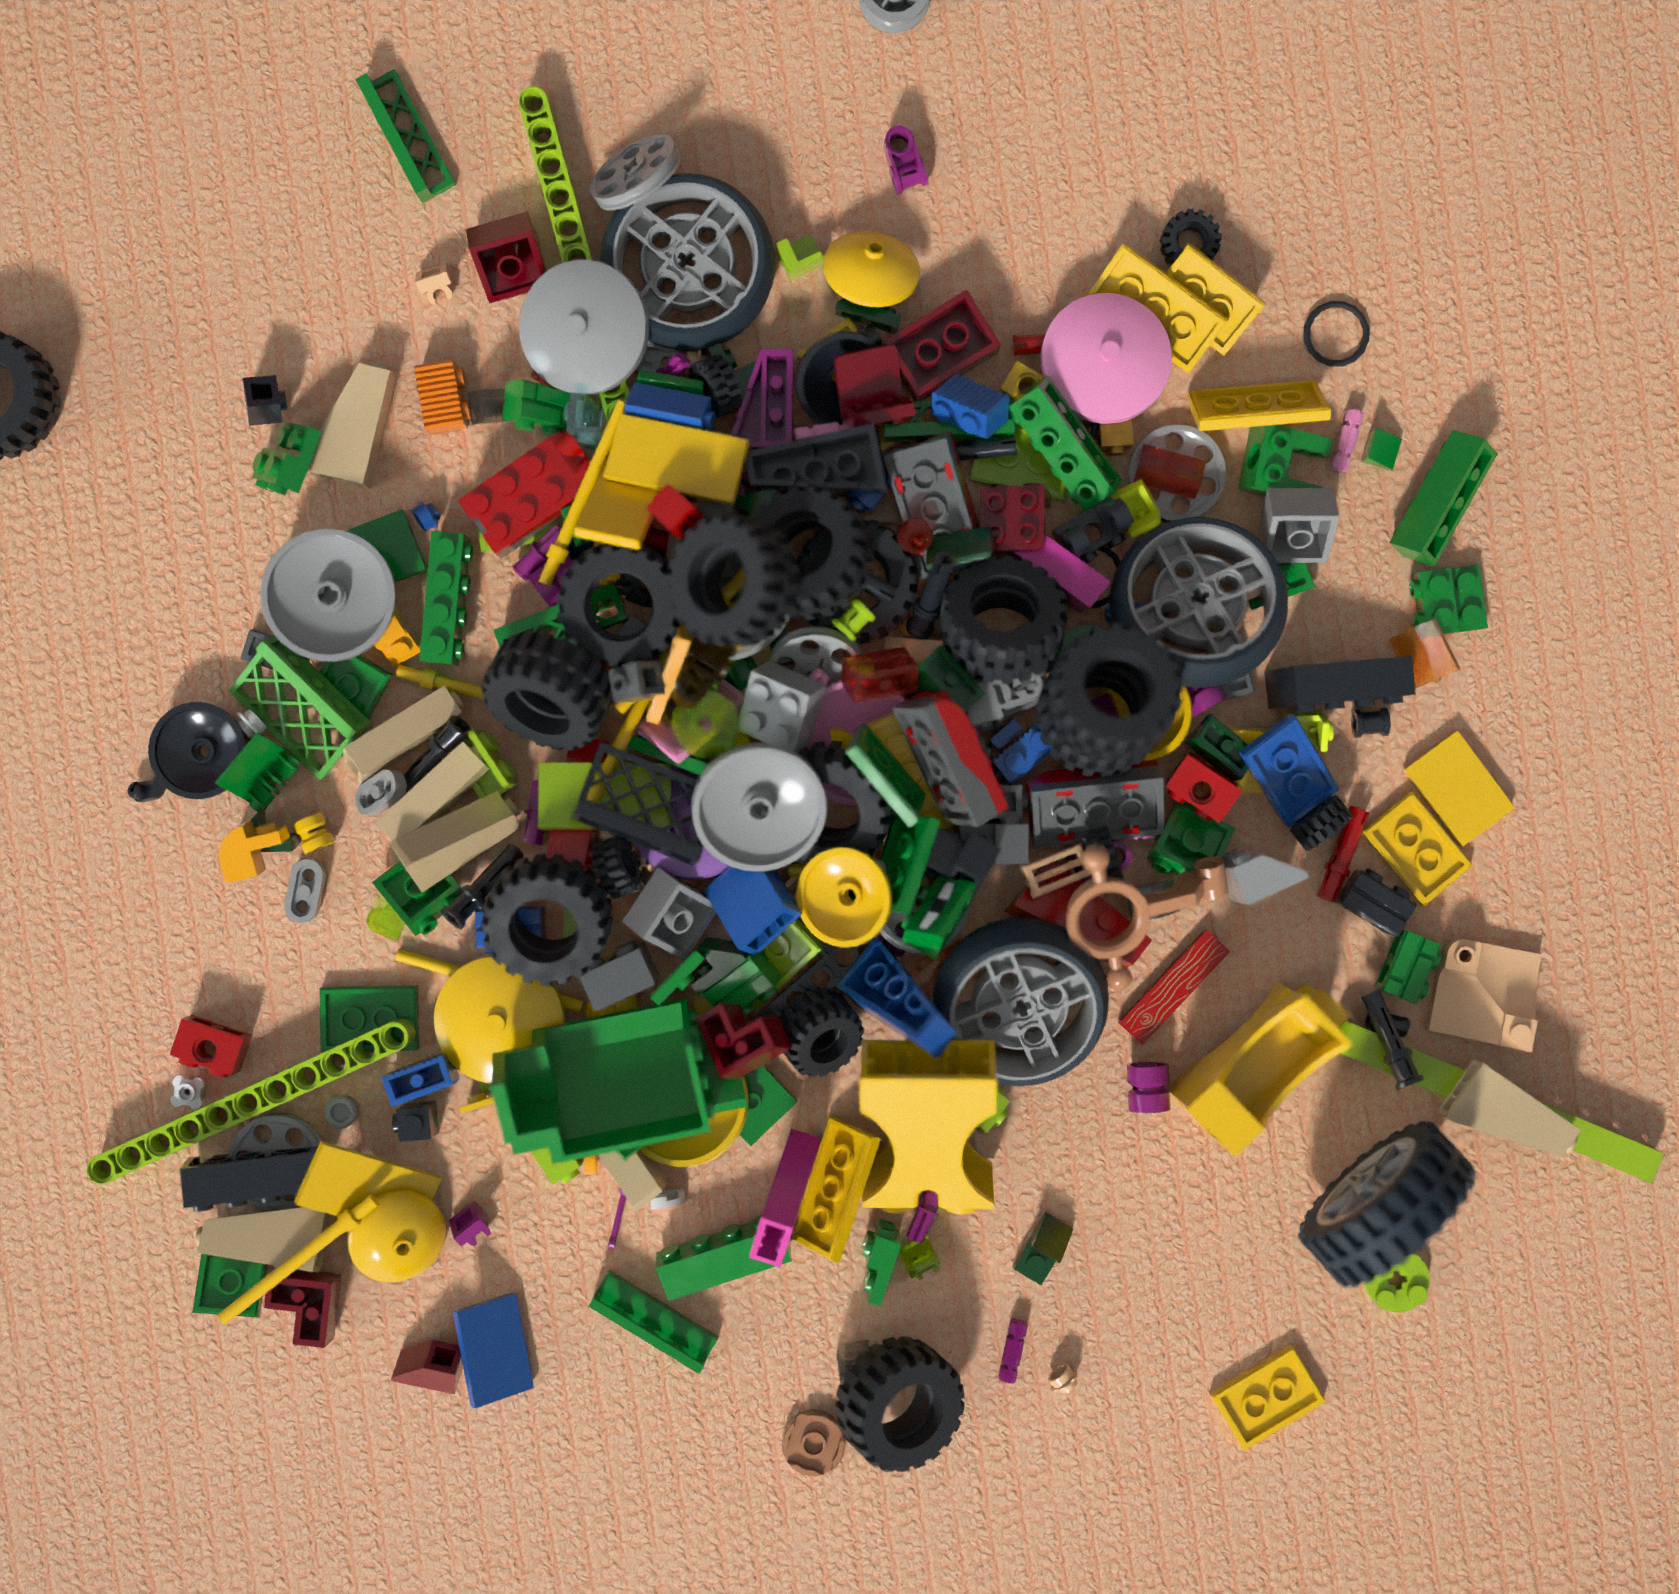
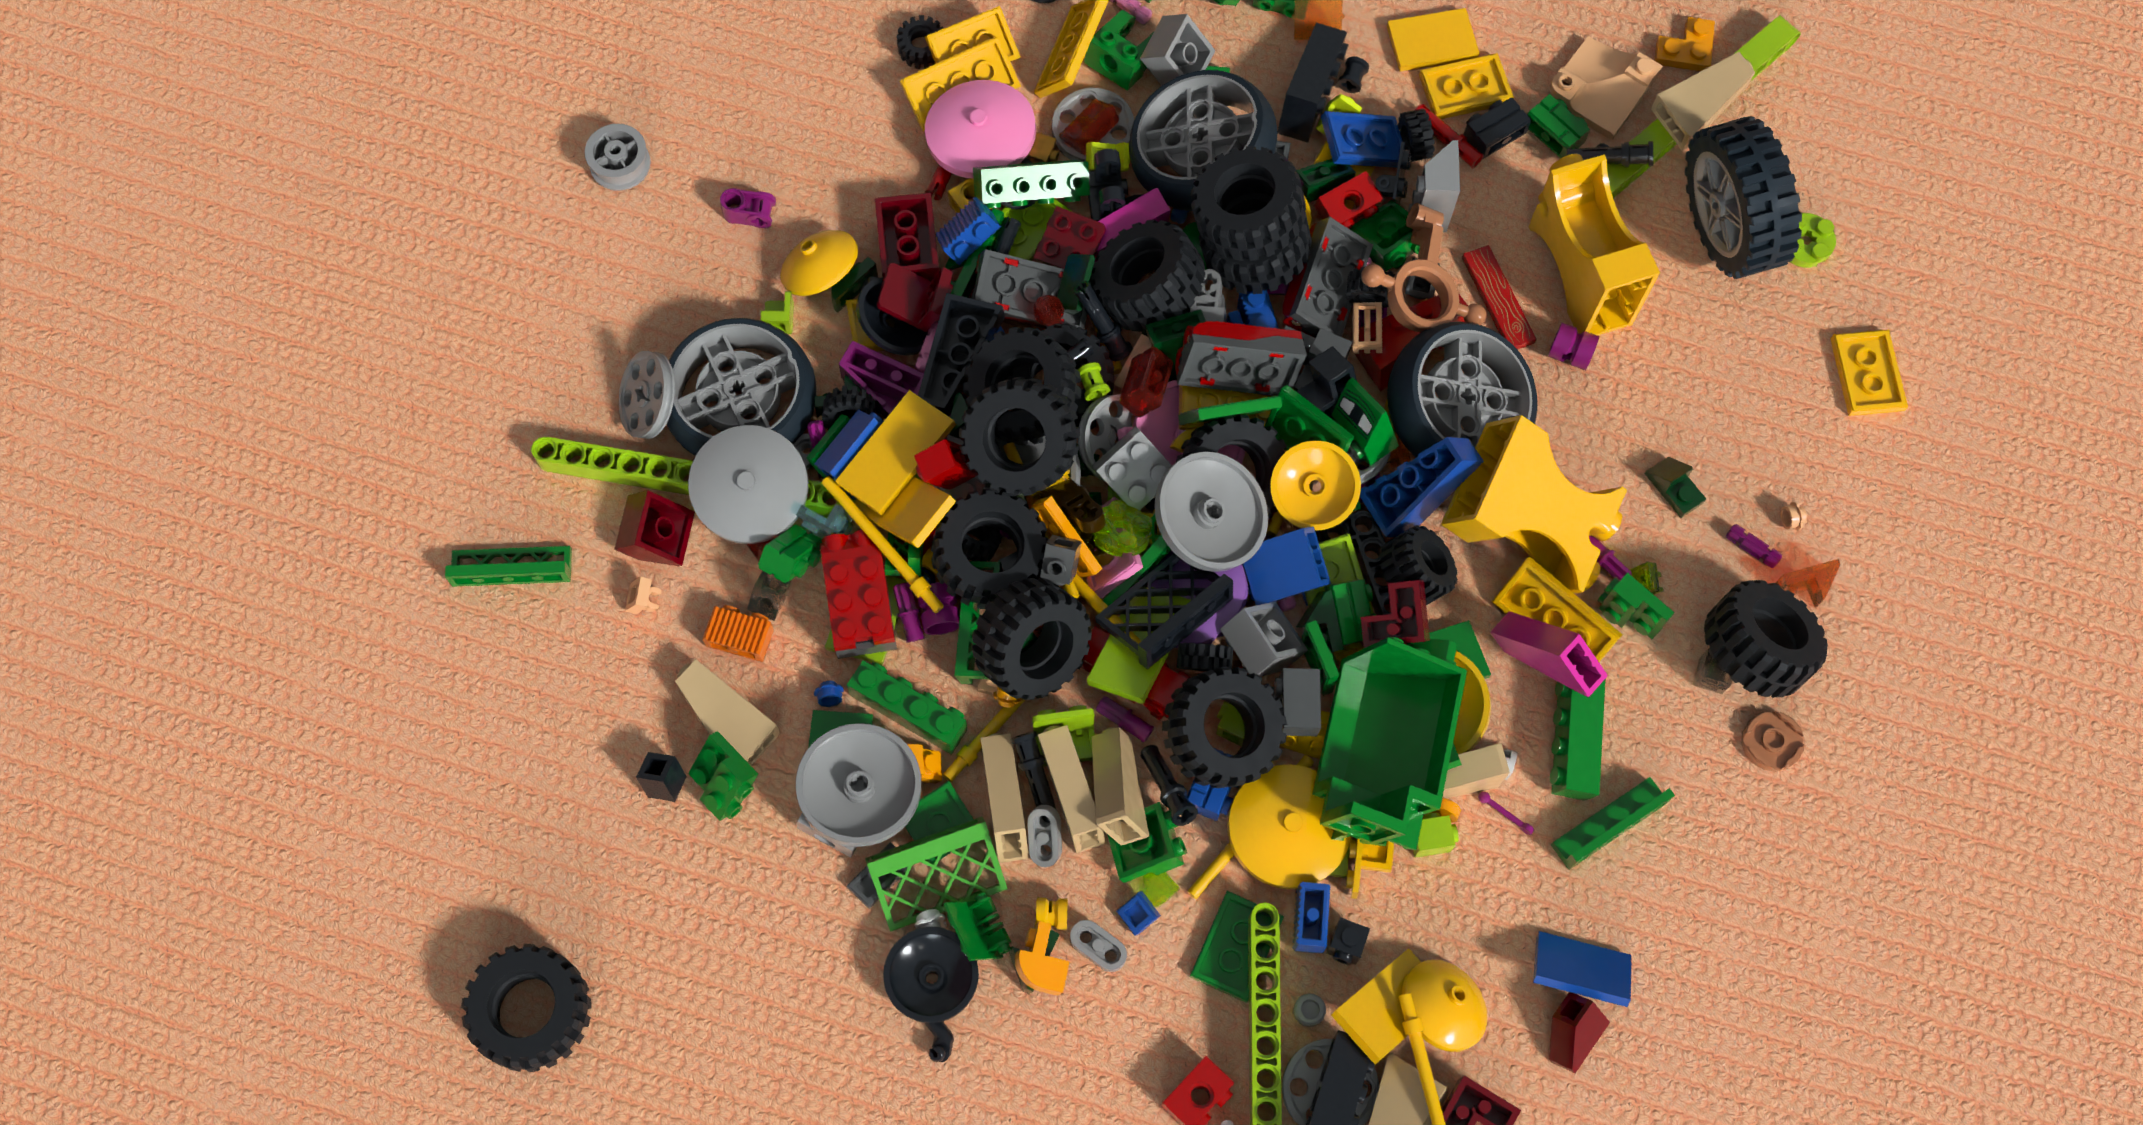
camera: 70 degrees left, 20 degrees down
(353, 913) = (1138, 913): none -> blue tile
(468, 1224) = (1459, 940): magenta tile -> none
(1003, 1428) = (1814, 579): none -> clear orange slope
(1246, 826) = (1396, 185): none -> black hinge
(1576, 1073) = (1689, 53): none -> light orange plate

